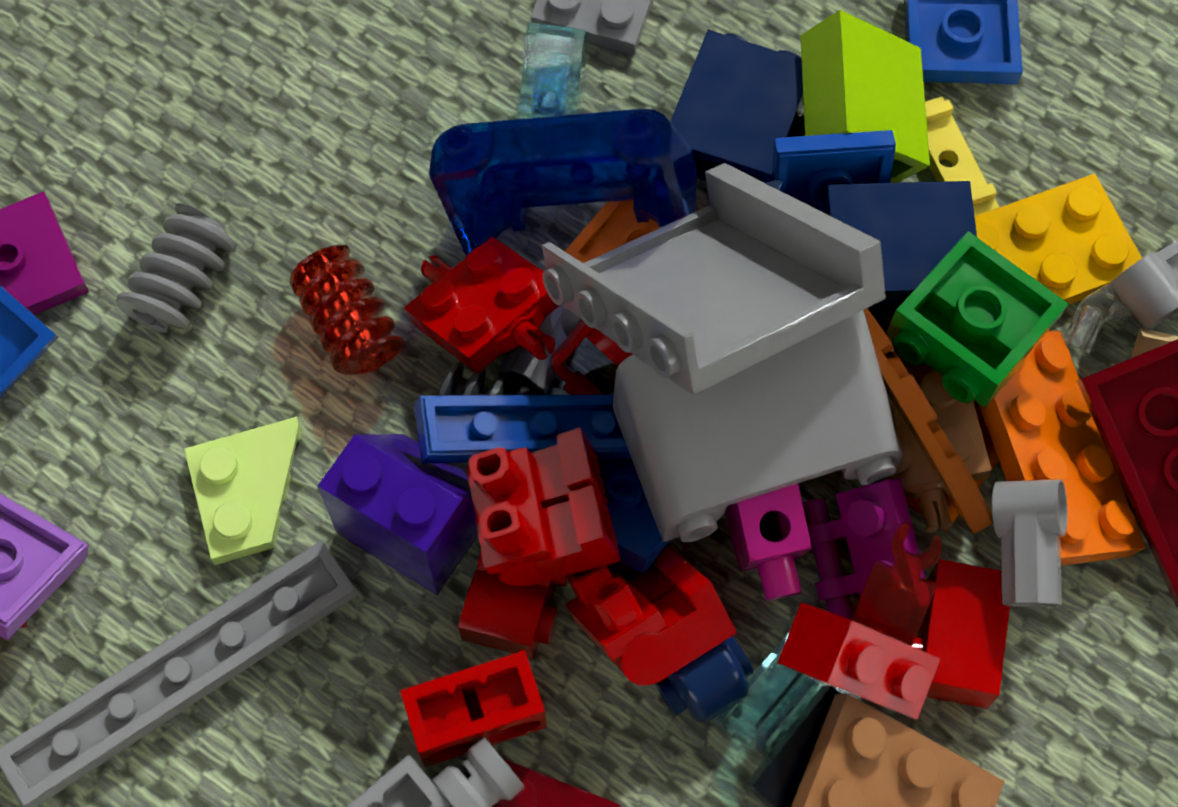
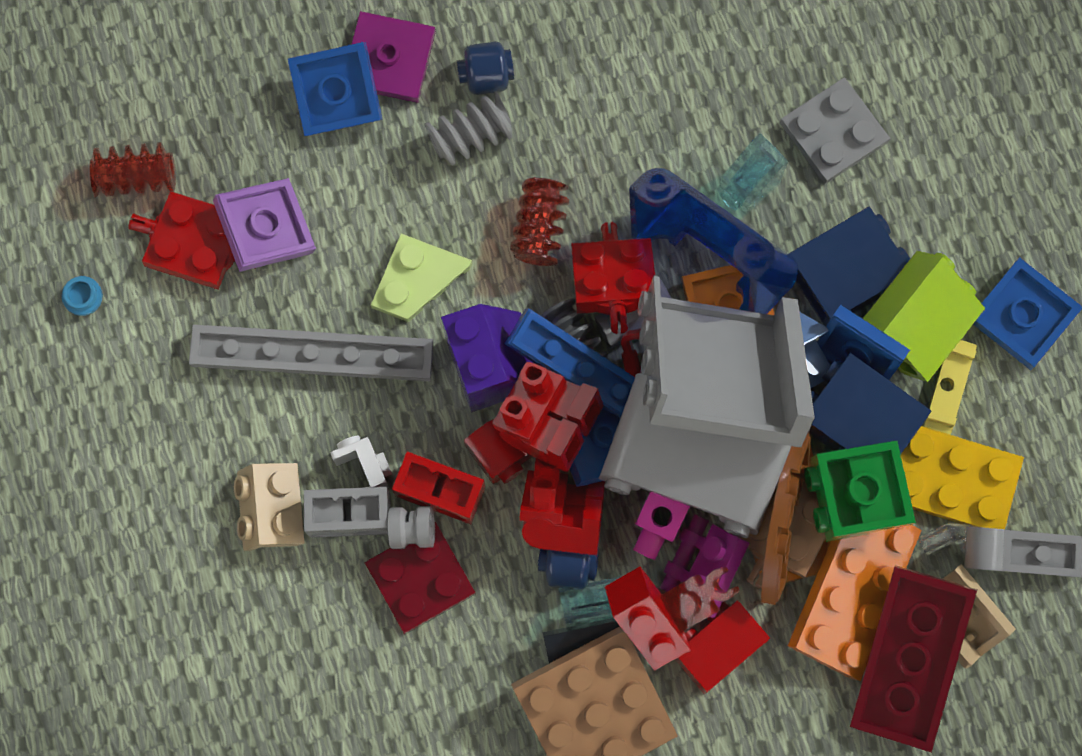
camera: 40 degrees right, 10 degrees up
(142, 191) = (486, 68): none -> dark blue head
(367, 748) = (374, 465): none -> white bracket
(1030, 522) = (795, 620): light grey piece -> none

